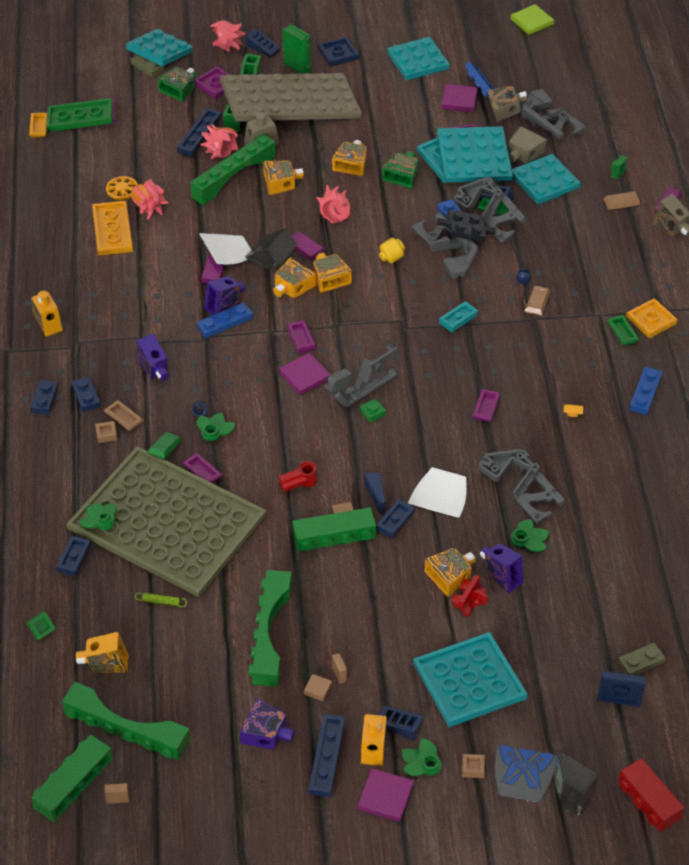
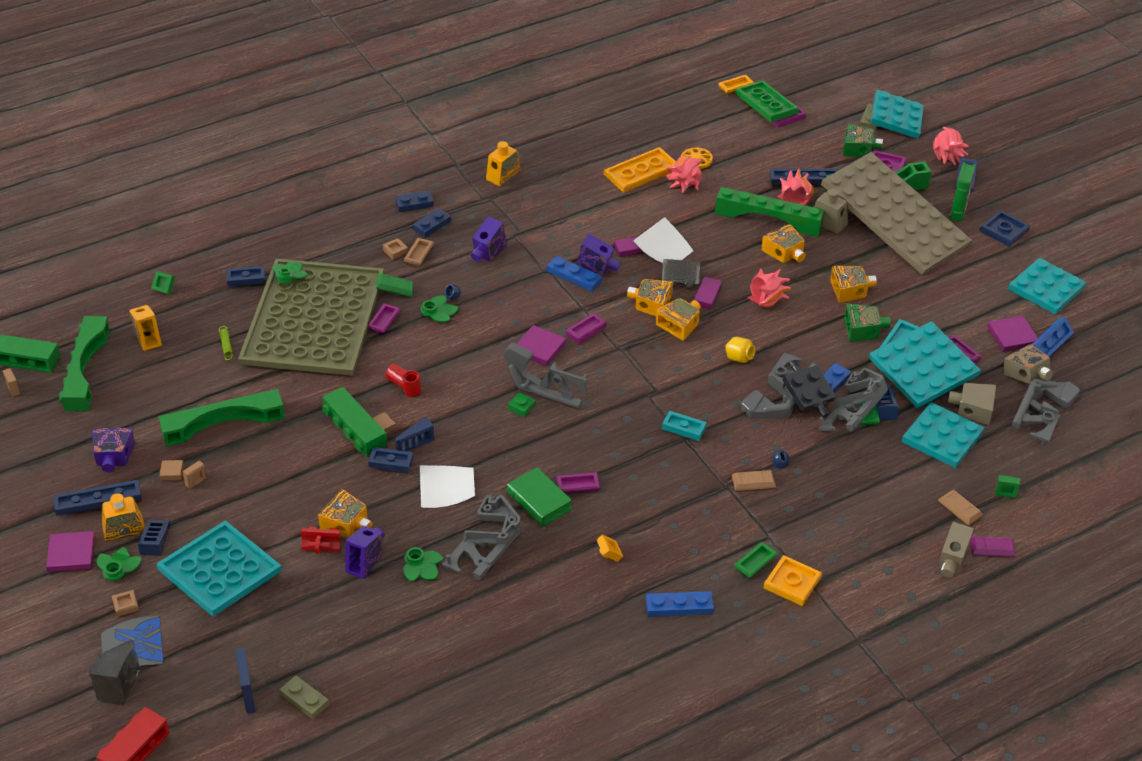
camera: 65 degrees right, 5 degrees down
(491, 433) = (539, 496): none -> green piece

